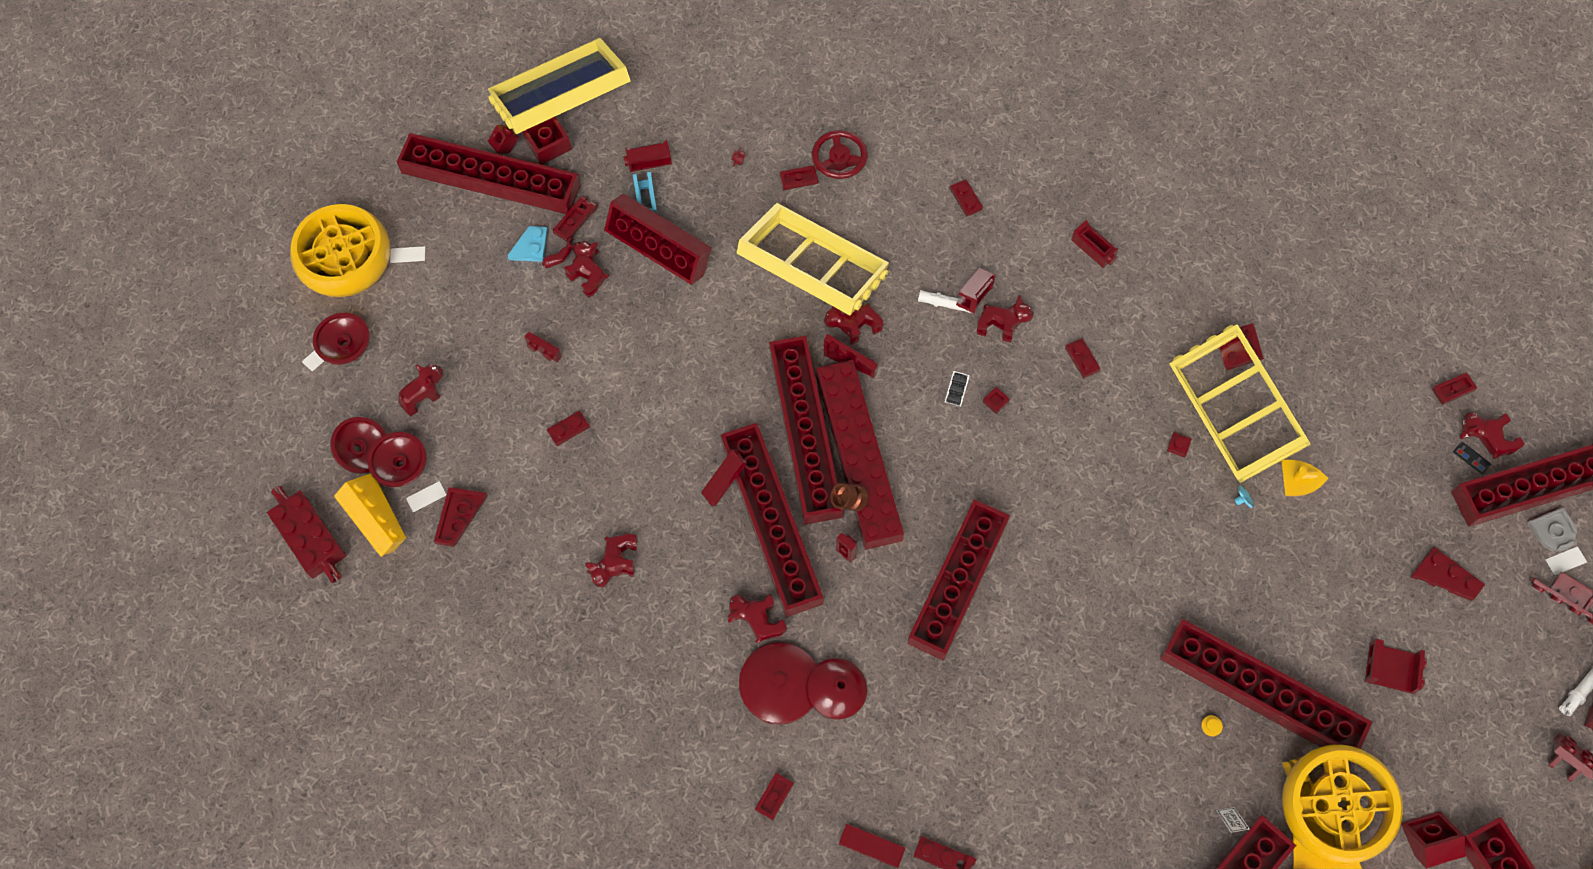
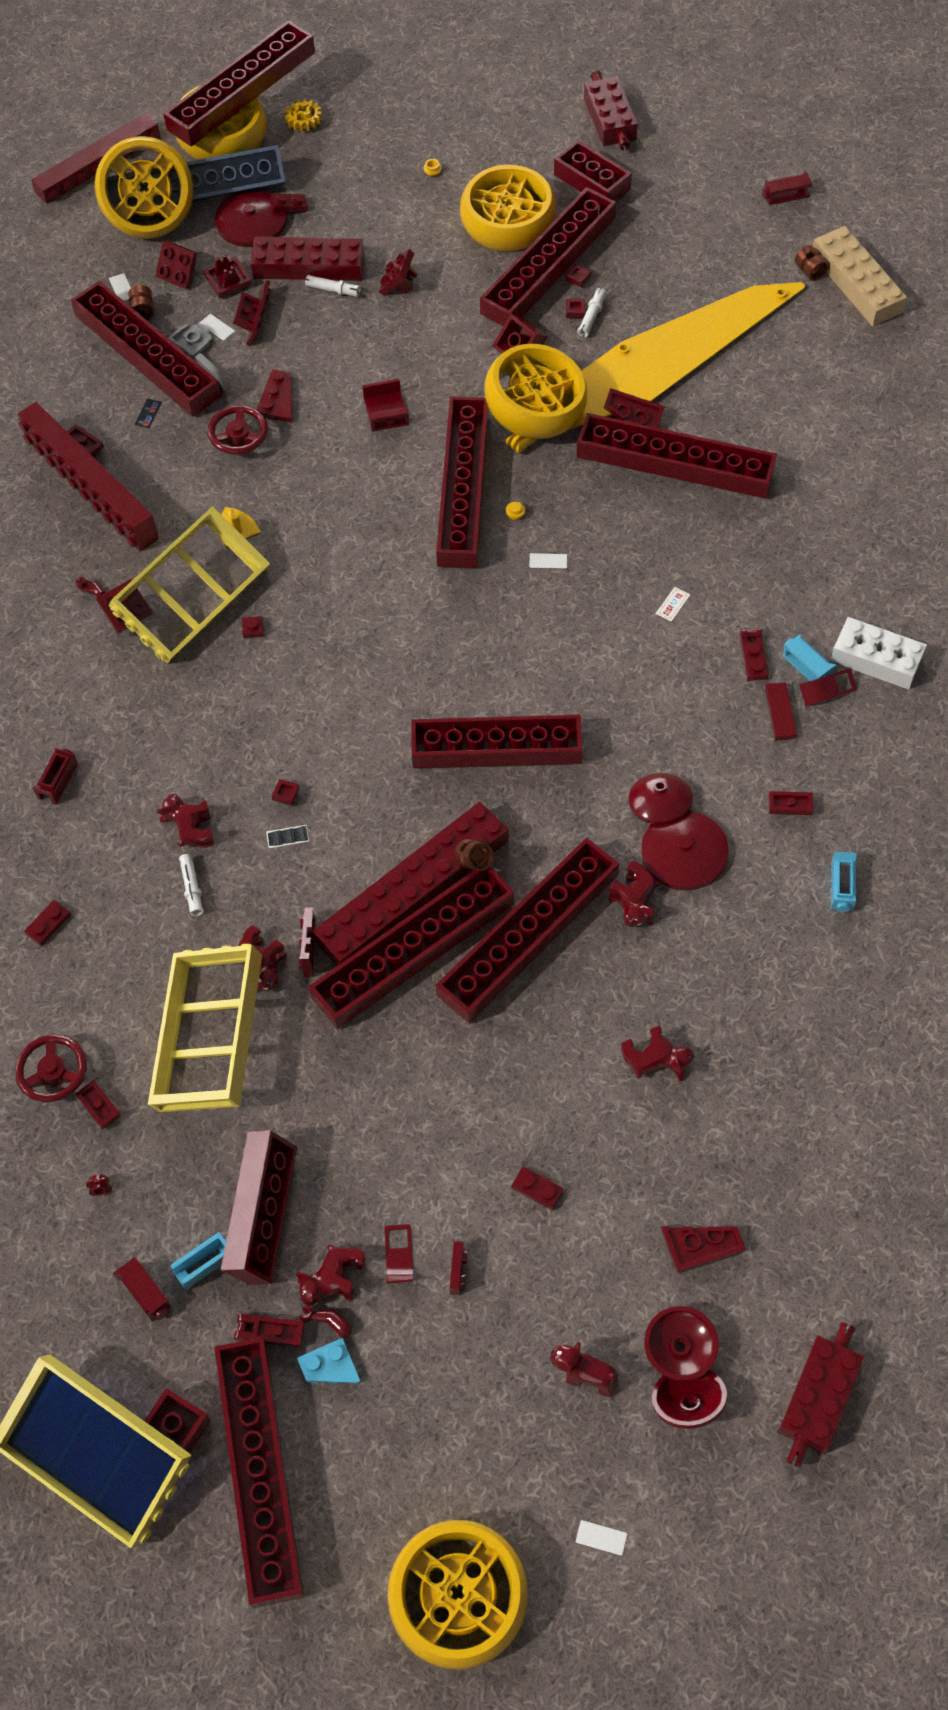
camera: 115 degrees left, 5 degrees down
(337, 330) = (577, 1491): dark red dish -> none
(371, 513) = (757, 1331): yellow wedge -> none
(407, 254) = (412, 1512): white sticker -> none
(426, 496) = (698, 1297): white sticker -> none
(503, 139) = (205, 1486): dark red brick -> none
(573, 317) = (398, 1260): none -> dark red piece
(687, 810) = (841, 901): none -> medium azure window
(723, 477) = (512, 988): dark red tile -> none
(846, 547) = (521, 845): dark red plate -> none
(975, 290) = (168, 856): window -> none
(1038, 817) = (672, 604): none -> white sticker
(1082, 358) = (196, 739): dark red plate -> none
(1140, 729) = (548, 560): none -> white sticker
(1232, 819) = (589, 465): white sticker -> none
(1244, 497) = (283, 558): medium azure plant -> none
(1278, 338) = (89, 587): none -> dark red arm
(1404, 370) = (88, 477): none -> dark red brick
(1411, 517) = (237, 431): none -> dark red piece
(1491, 434) = (119, 401): dark red animal -> none
(1492, 522) = (214, 371): none -> light grey tile

